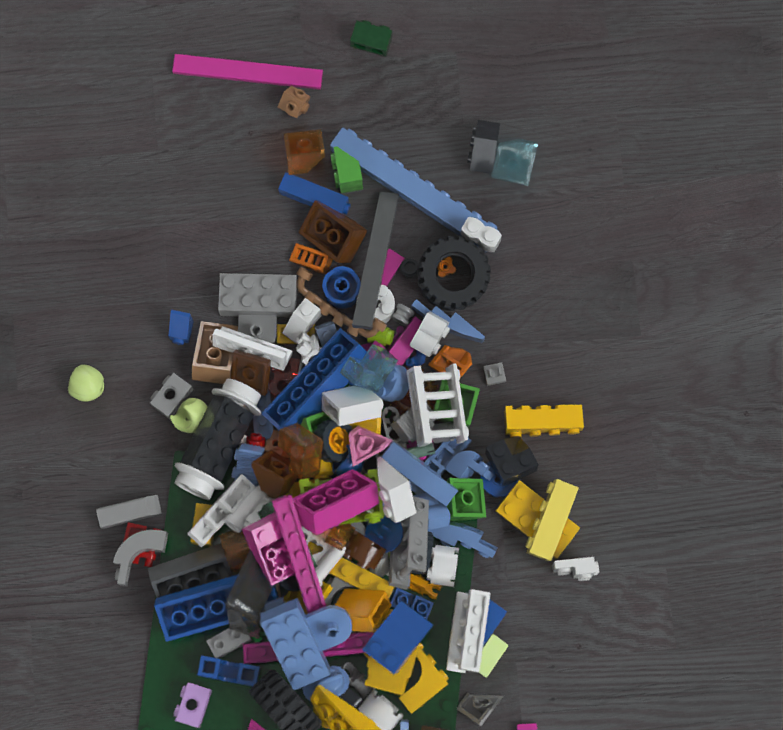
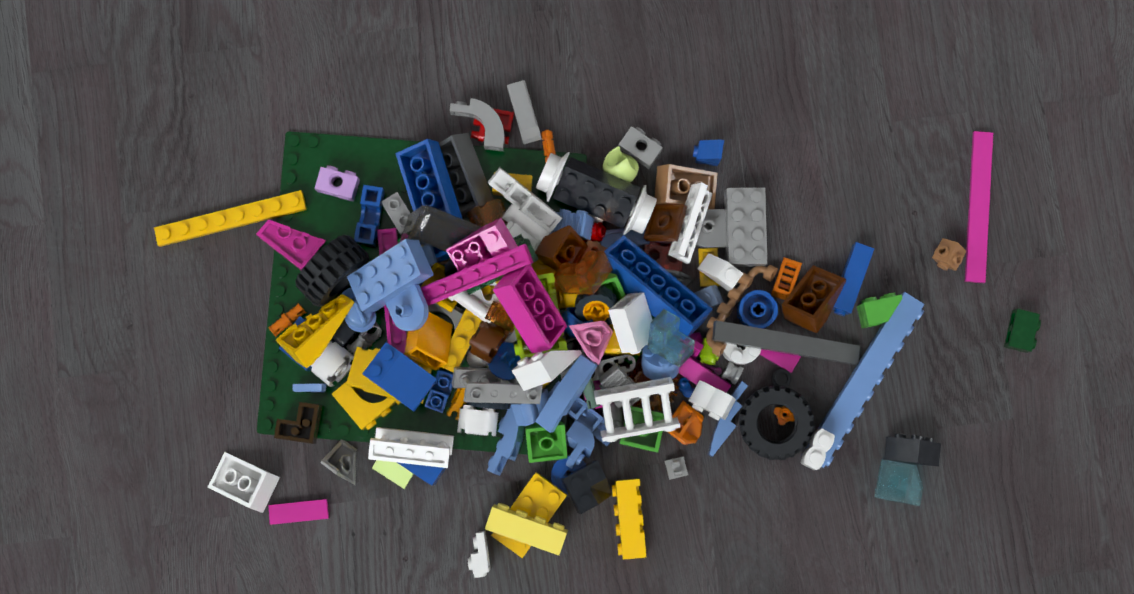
camera: 85 degrees right, 5 degrees up
(86, 383) = (649, 63): yellowish green piece -> none
(163, 488) = (548, 144): none -> orange axle
(303, 150) = (897, 265): clear orange slope -> none
(307, 346) = (693, 278): white hips -> none

